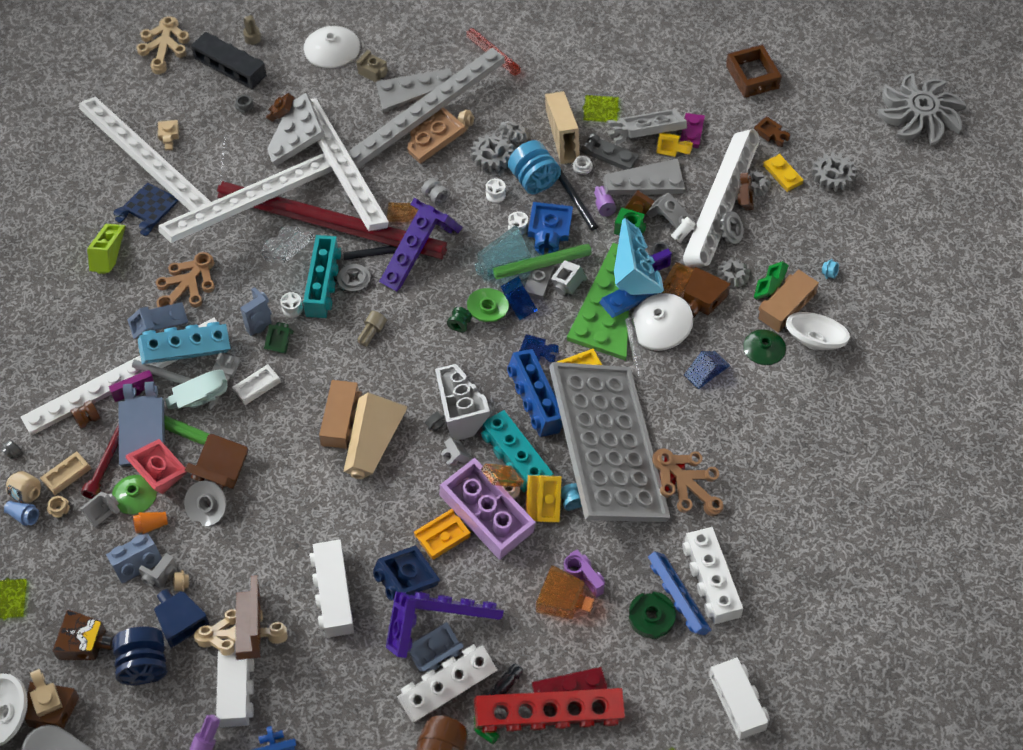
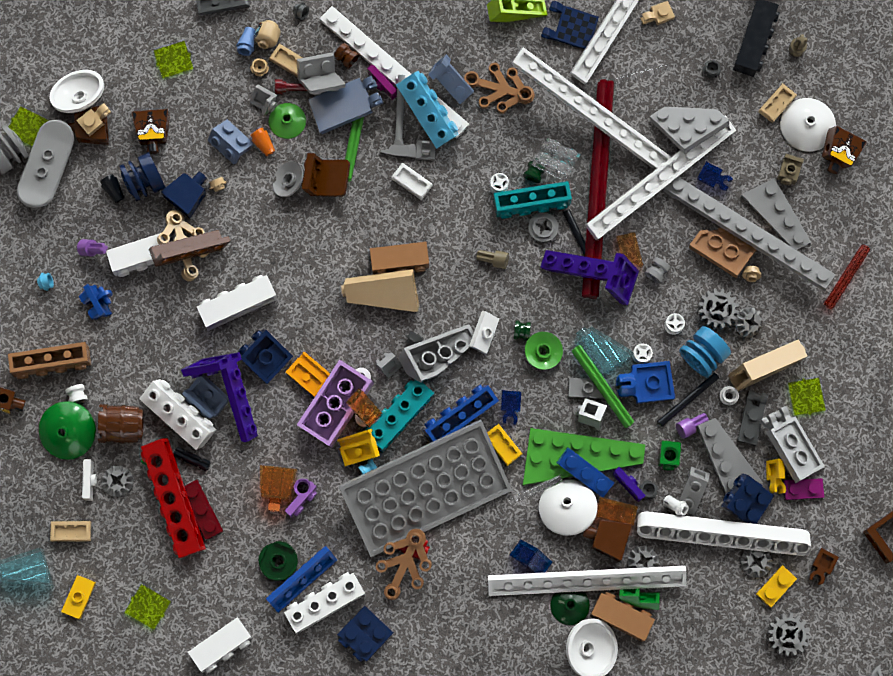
camera: 70 degrees right, 20 degrees up
(92, 445) = (319, 74): none -> light grey bracket
(137, 700) = (112, 187): none -> black cone
(157, 465) = (308, 129): coral slope -> none
(161, 573) = (221, 168): light grey bracket -> none
(198, 390) = (387, 136): light aqua piece -> none
(256, 313) = (474, 159): sand blue bracket -> none
(278, 337) = (463, 183): dark green bracket -> none
(281, 107) = (711, 103): reddish brown plate -> none
(291, 271) = (533, 173): none -> dark green wheel
(301, 62) = (777, 103): none -> tan plate
(354, 128) = (712, 175): none -> clear blue plate
(367, 23) = (841, 148): none -> reddish brown torso
(450, 354) = (484, 332): none -> white plate
(518, 298) = (559, 374): clear blue slope -> none
(634, 265) = (610, 469): medium azure wedge -> none
(639, 203) = (689, 457): reddish brown bracket -> none
(691, 171) = (747, 499): none -> dark blue plate
(734, 233) = (693, 554): light grey gear -> none
(743, 324) = (587, 580): none -> white plate
(745, 197) = (733, 555): reddish brown plate -> none
(757, 545) = (364, 634): none -> dark blue plate
(830, 269) = (671, 650): medium azure plate -> none

